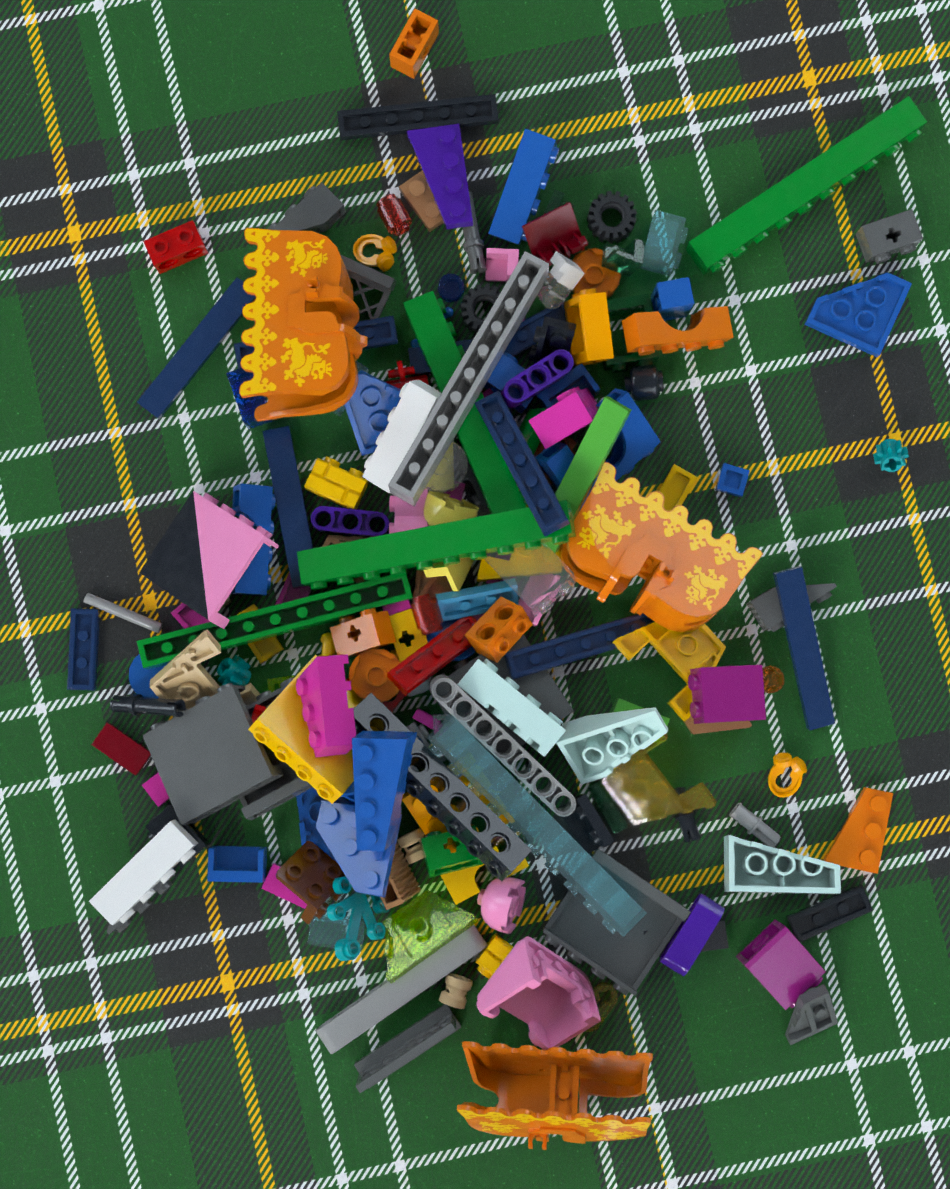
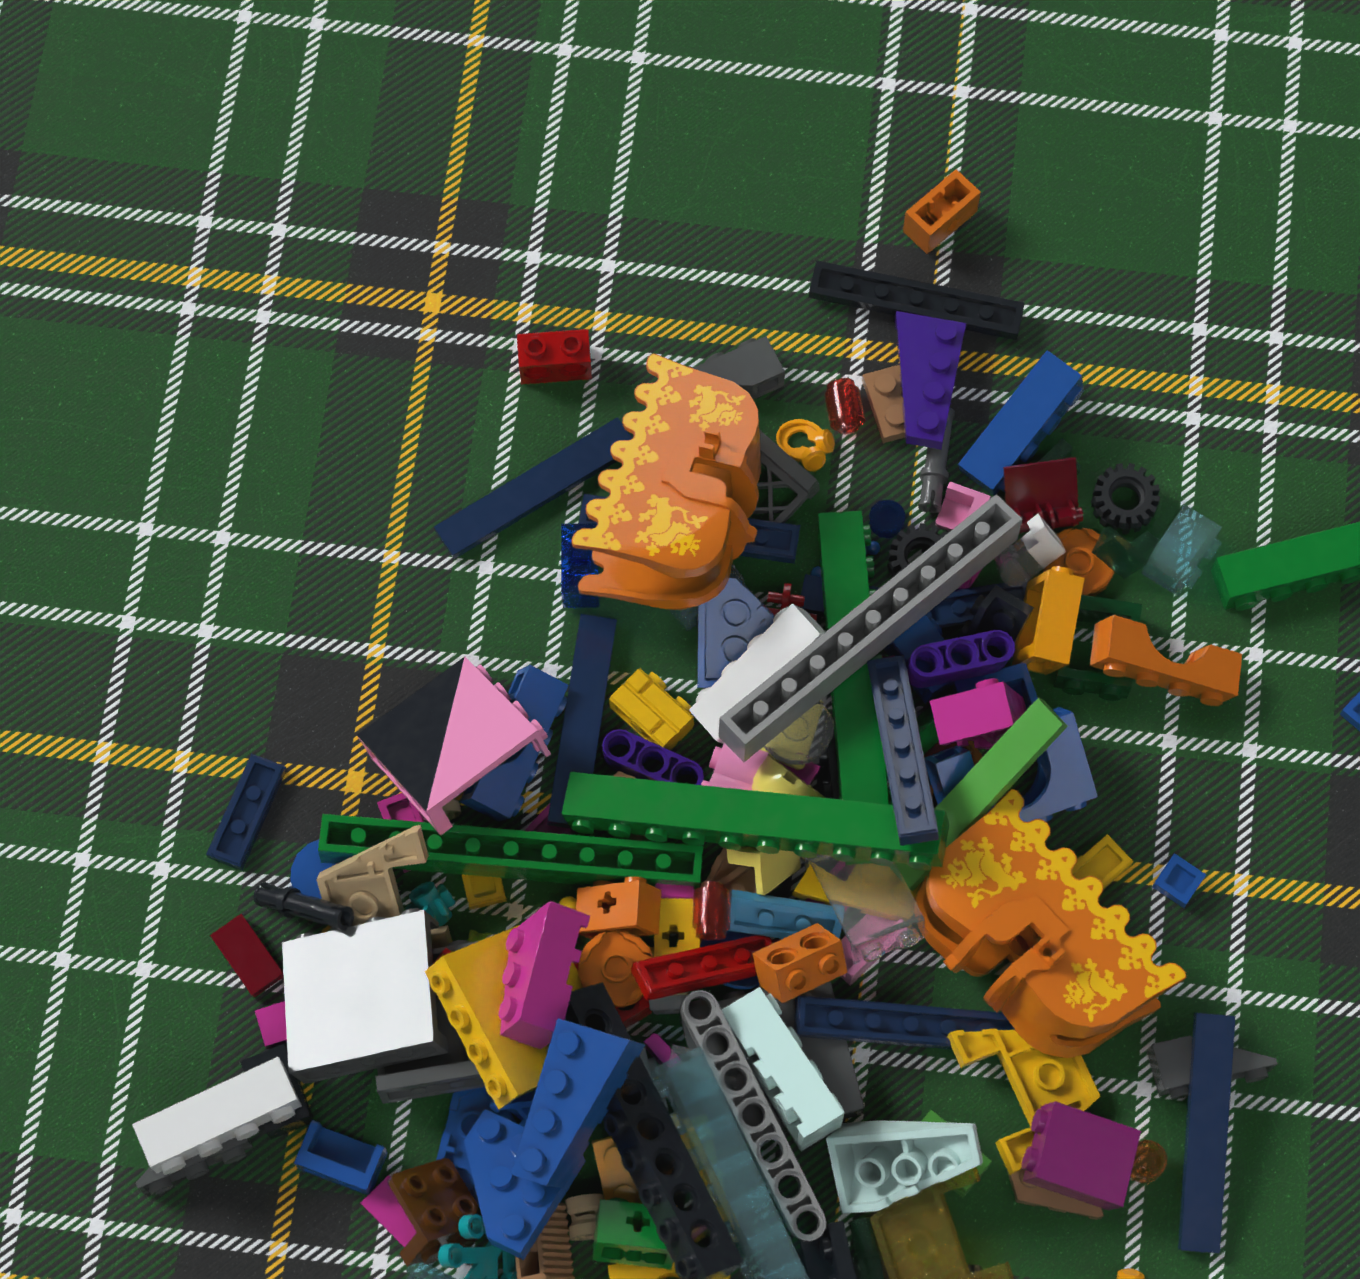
camera: 25 degrees right, 15 degrees down
(123, 613) = (314, 781): light grey bar -> none
(644, 382) = (1101, 716): black head -> none
(673, 298) = (1172, 620): blue panel -> none

